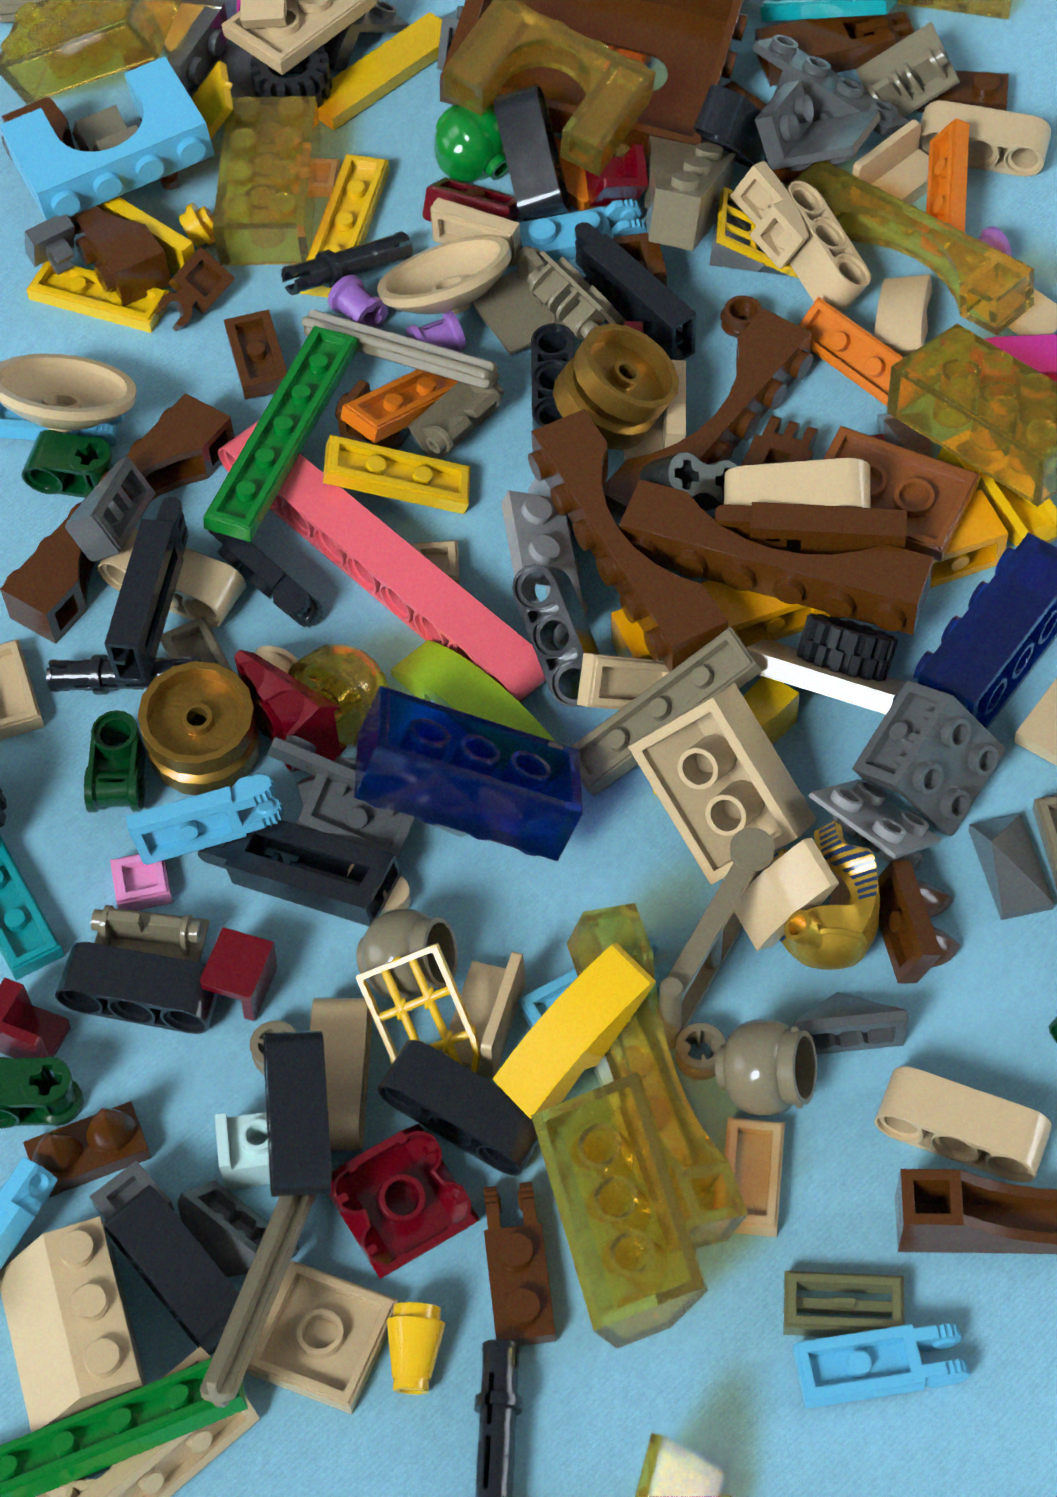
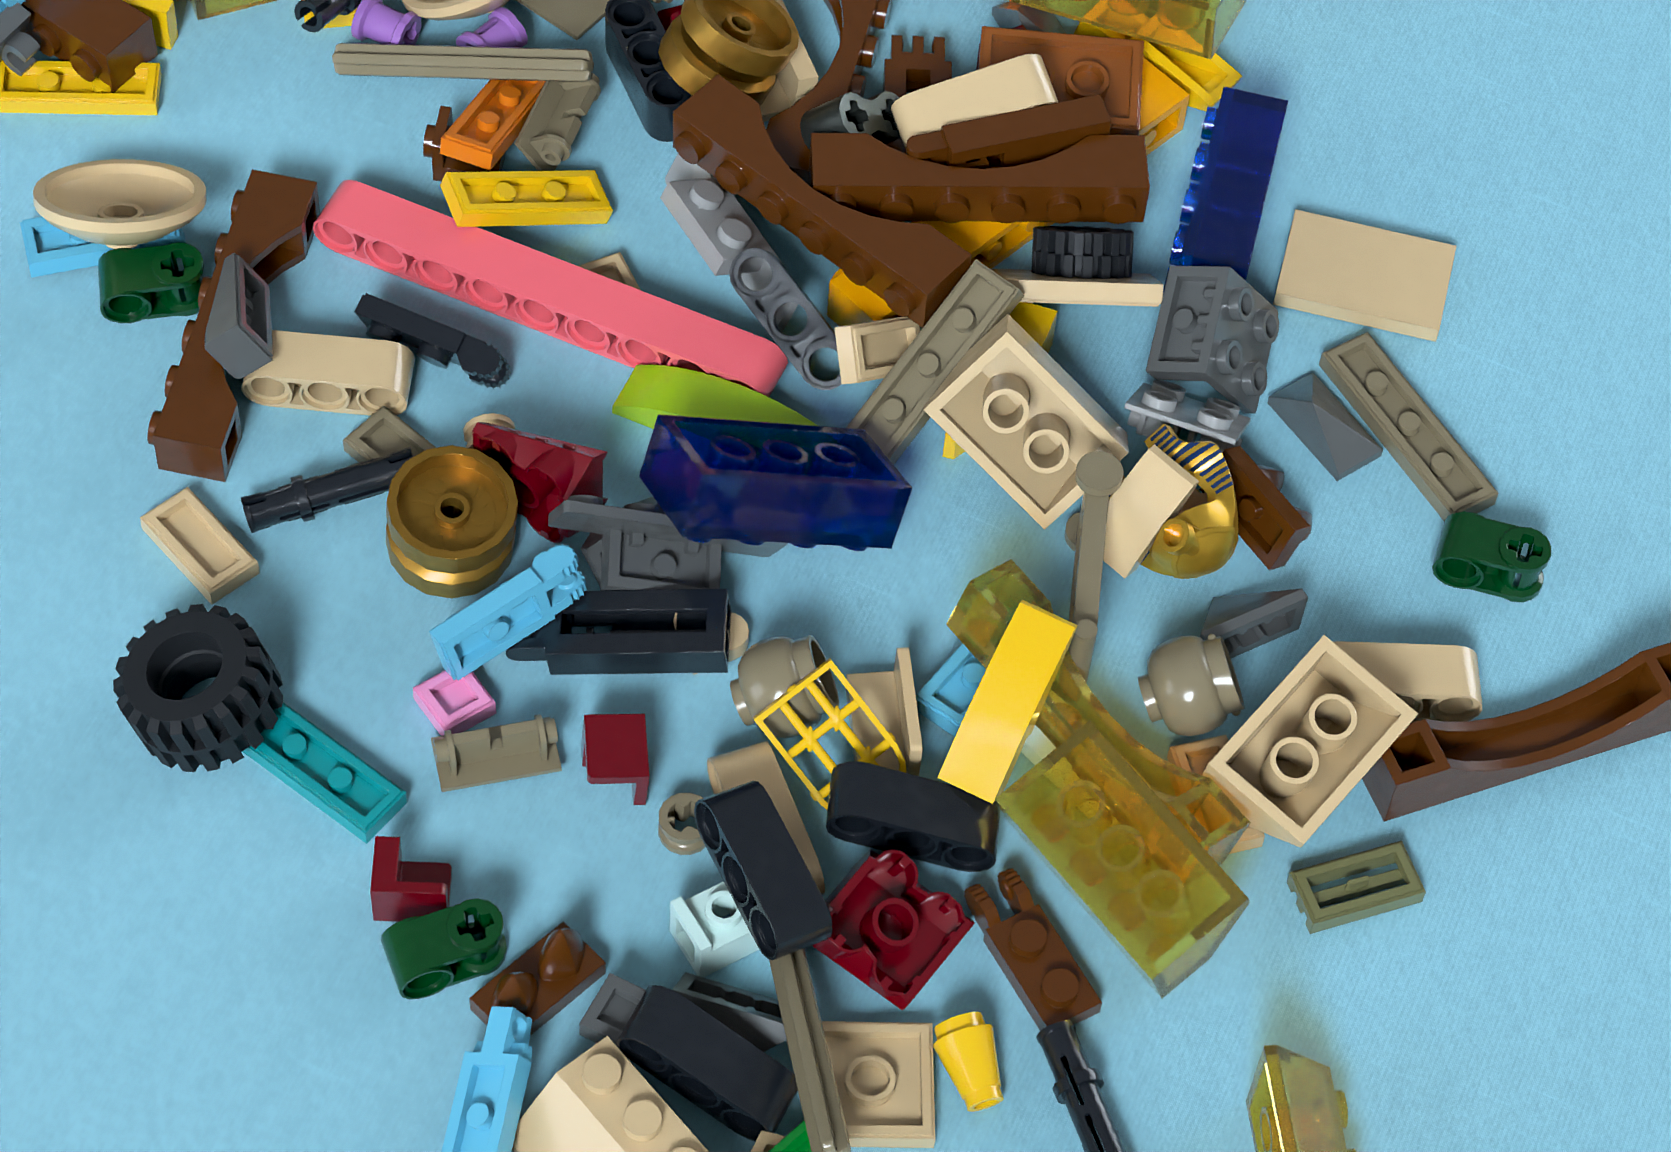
camera: 30 degrees left, 0 degrees up
(115, 772) = (374, 594): dark green piece -> none
(136, 988) = (512, 807): black beam -> none
(147, 593) = (335, 394): black hinge -> none
(197, 285) = (195, 48): reddish brown plate -> none
(256, 353) = (299, 108): reddish brown plate -> none
(280, 434) = (385, 186): green tile -> none
(344, 677) = (593, 421): clear yellow cylinder -> none
(697, 1034) = (1121, 677): dark tan bush -> none
(834, 1157) = (1309, 744): none -> tan slope
(875, 1364) = (1411, 929): medium azure hinge -> none

